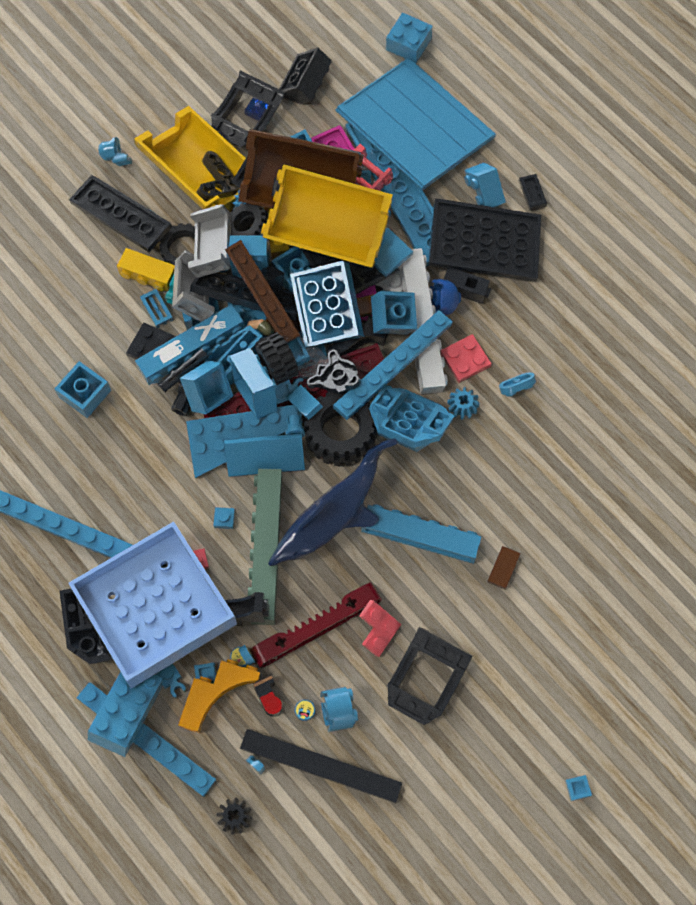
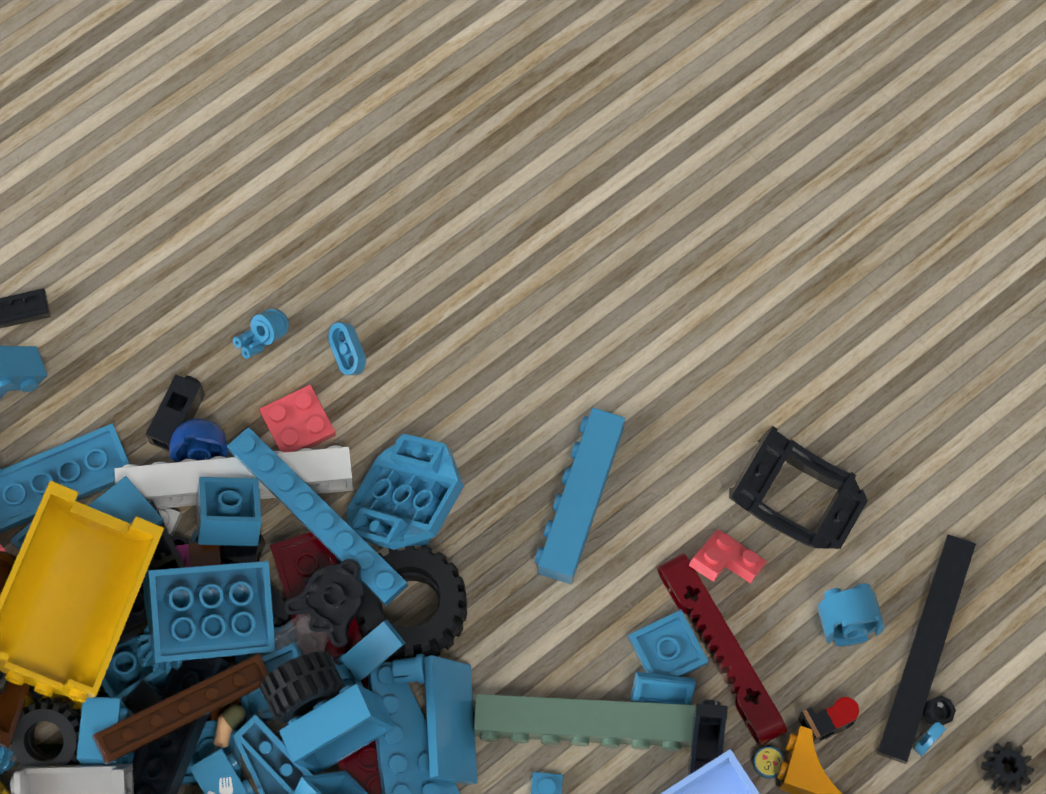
camera: 90 degrees left, 0 degrees up
(246, 655) = (772, 747): dark azure tile -> none
(274, 771) = (939, 710): none -> black tile
(286, 586) = (662, 689): none -> dark azure tile
(305, 710) = (847, 668): tile -> none
(315, 591) = (668, 647): none -> dark azure plate
(334, 511) = (545, 600): dark blue animal -> none
(466, 409) = (376, 435): dark azure gear -> none
(485, 240) = (100, 381): black plate -> none
(503, 567) = (632, 385): reddish brown tile -> none
(526, 333) = (265, 329): none -> dark azure piece
(578, 788) = (945, 307): dark azure plate -> none

